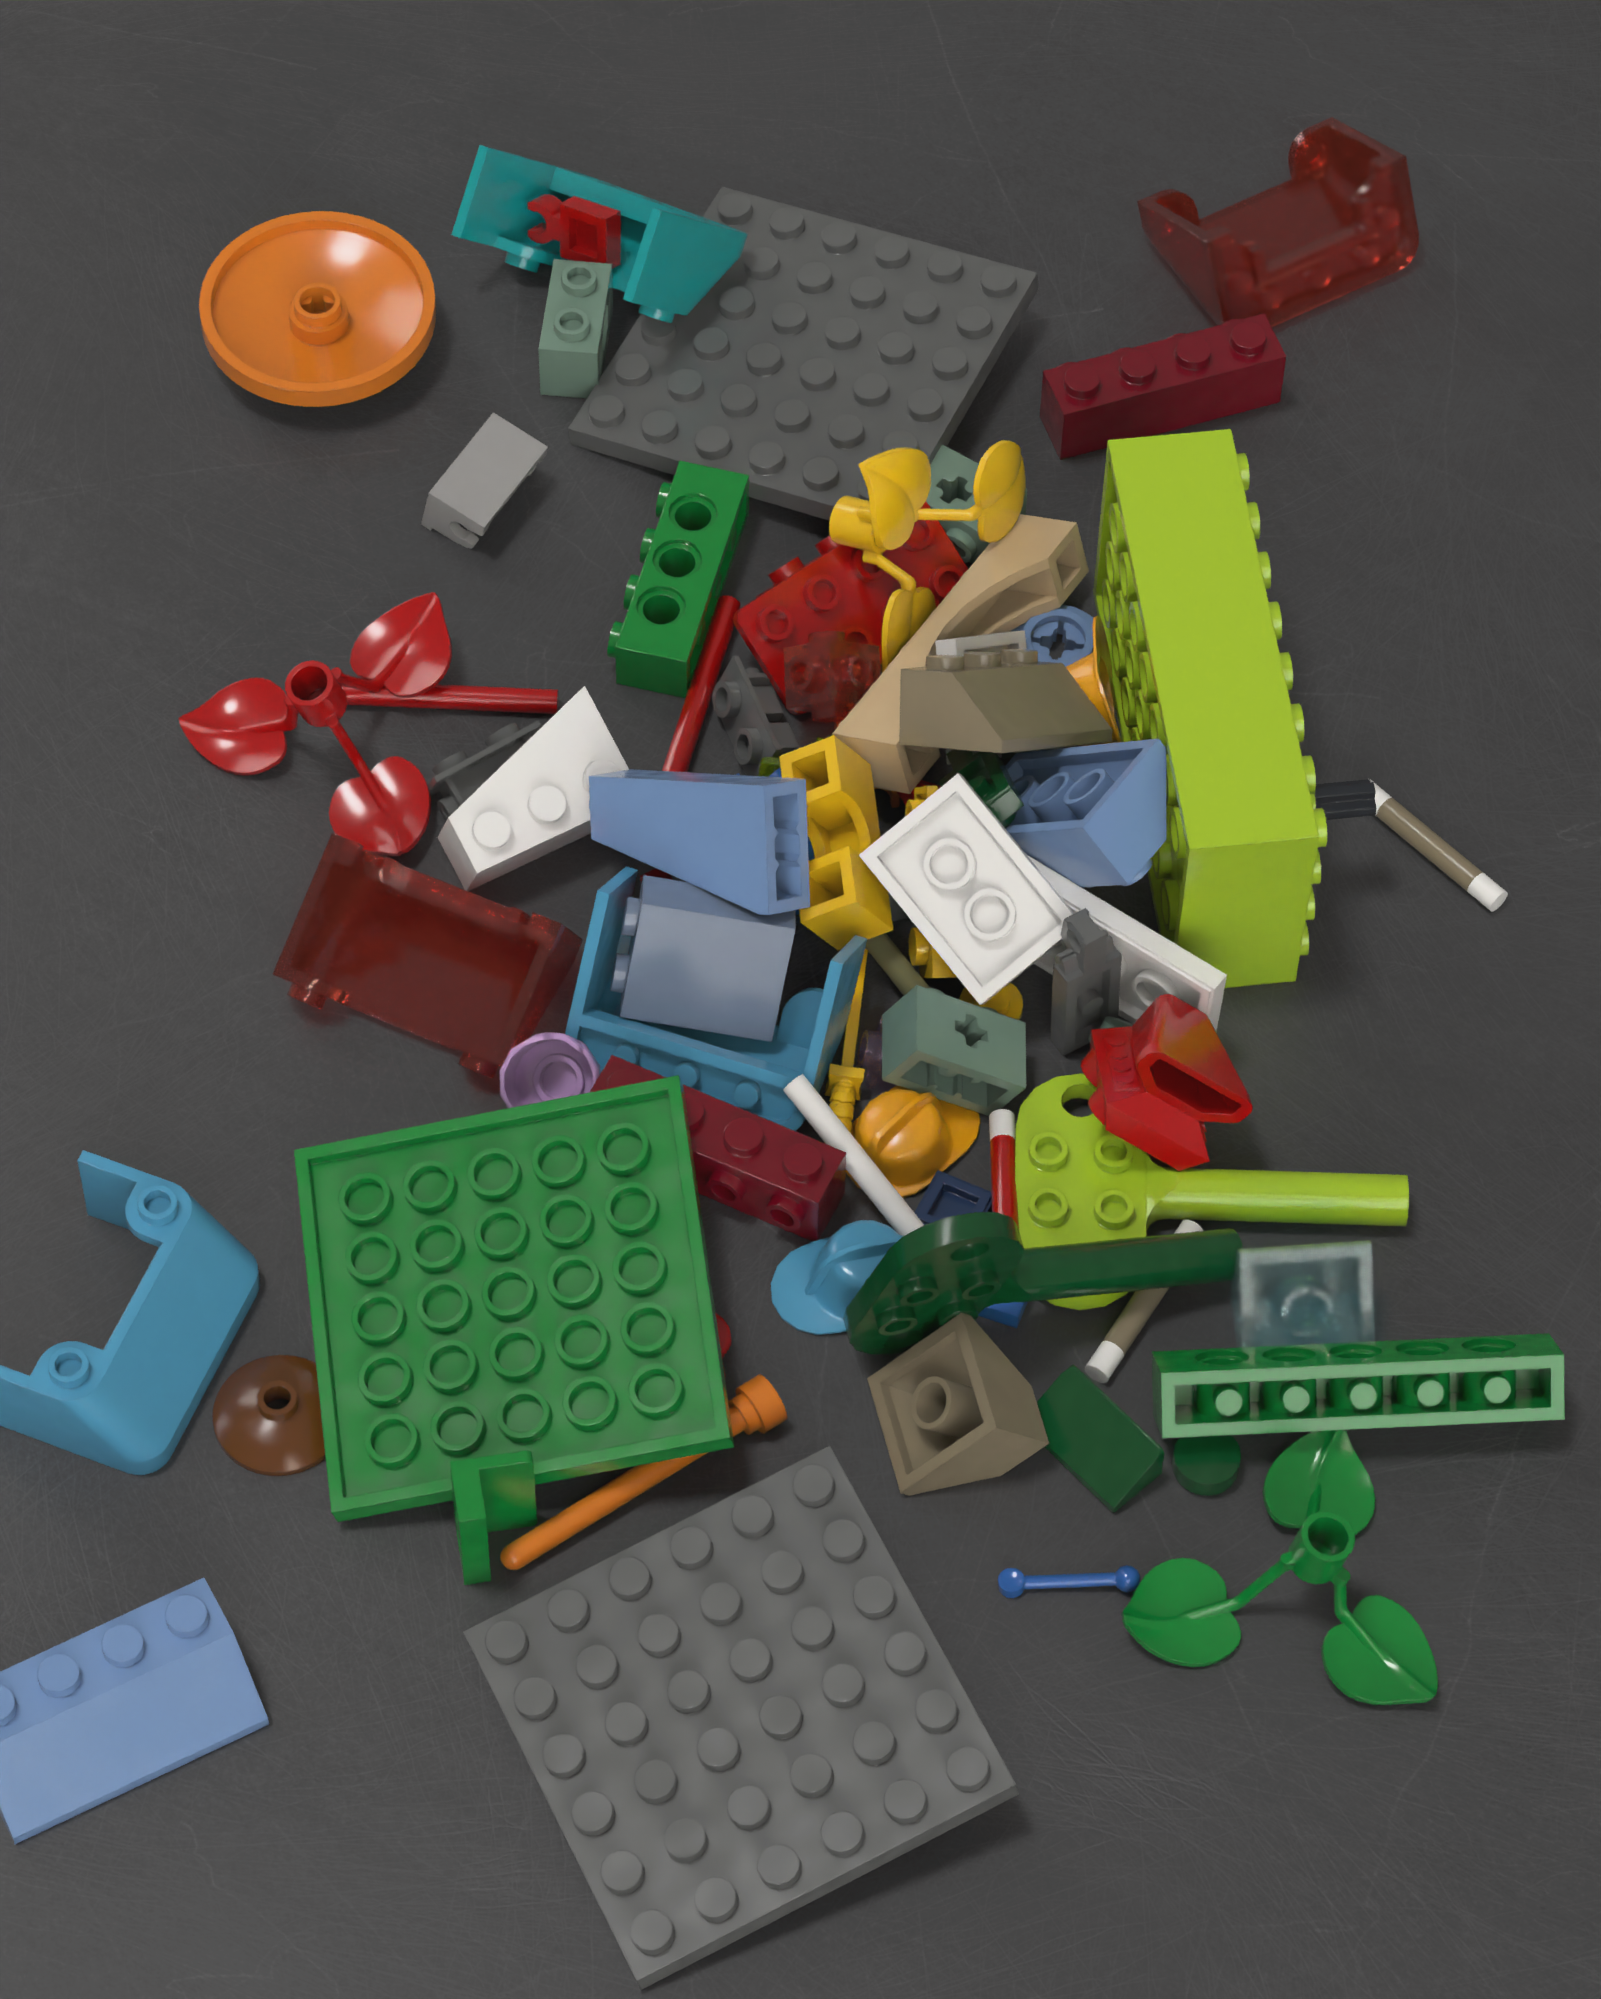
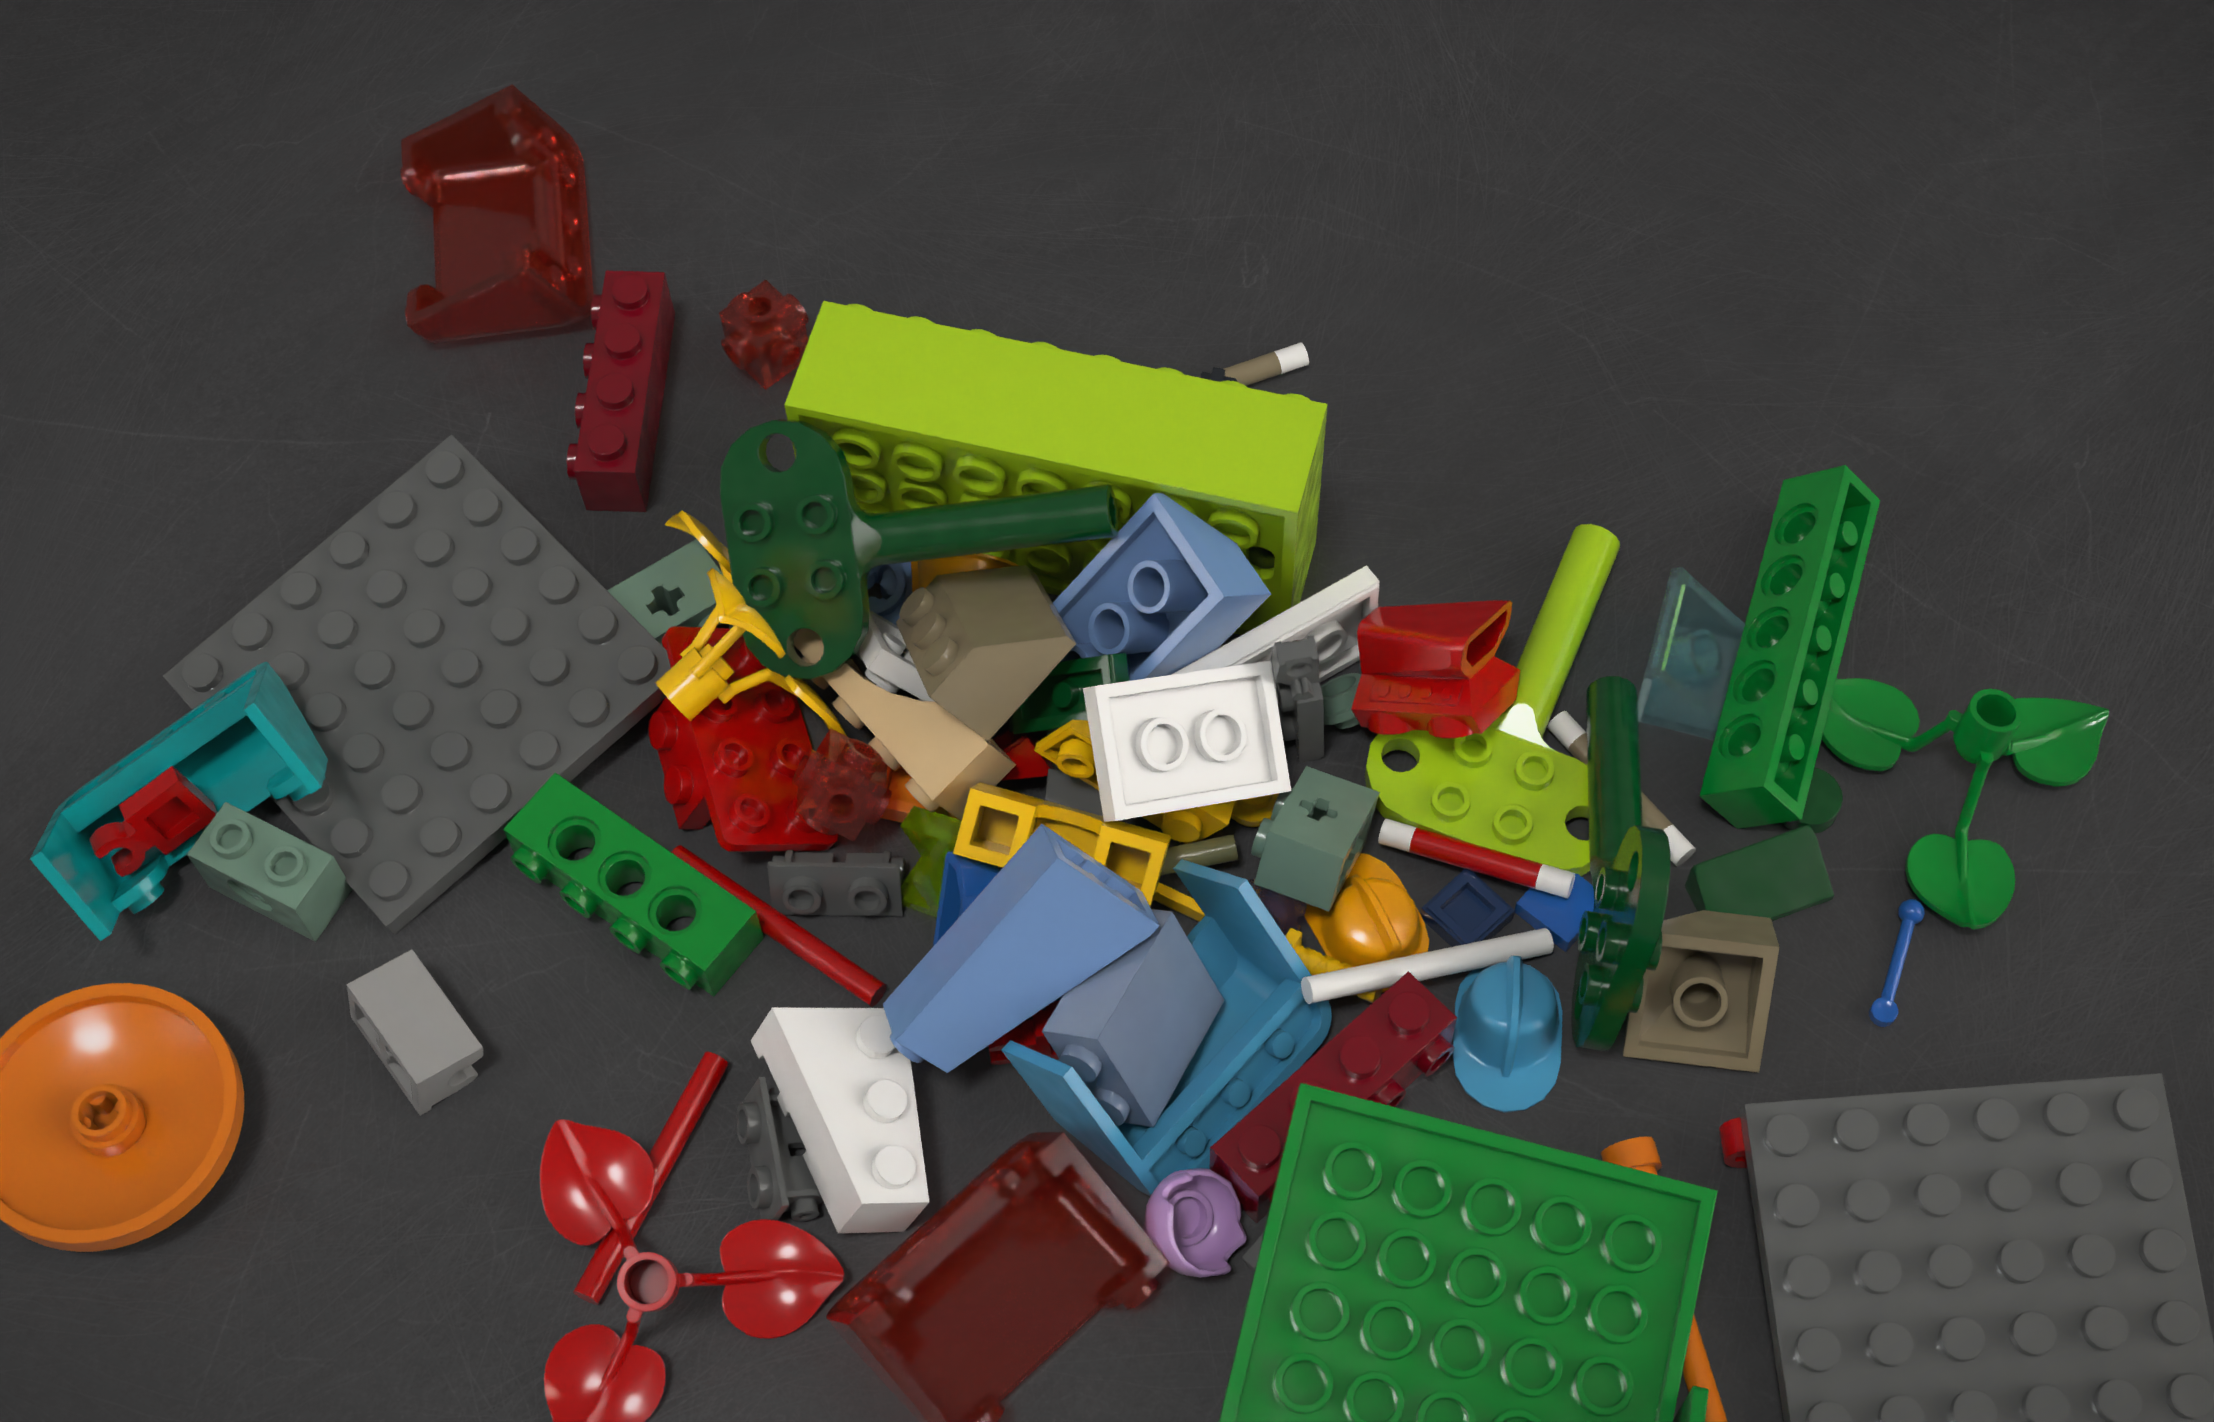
camera: 65 degrees left, 5 degrees up
(1010, 544) = (807, 546): none -> dark green piece
(1280, 464) = (764, 333): none -> clear red brick

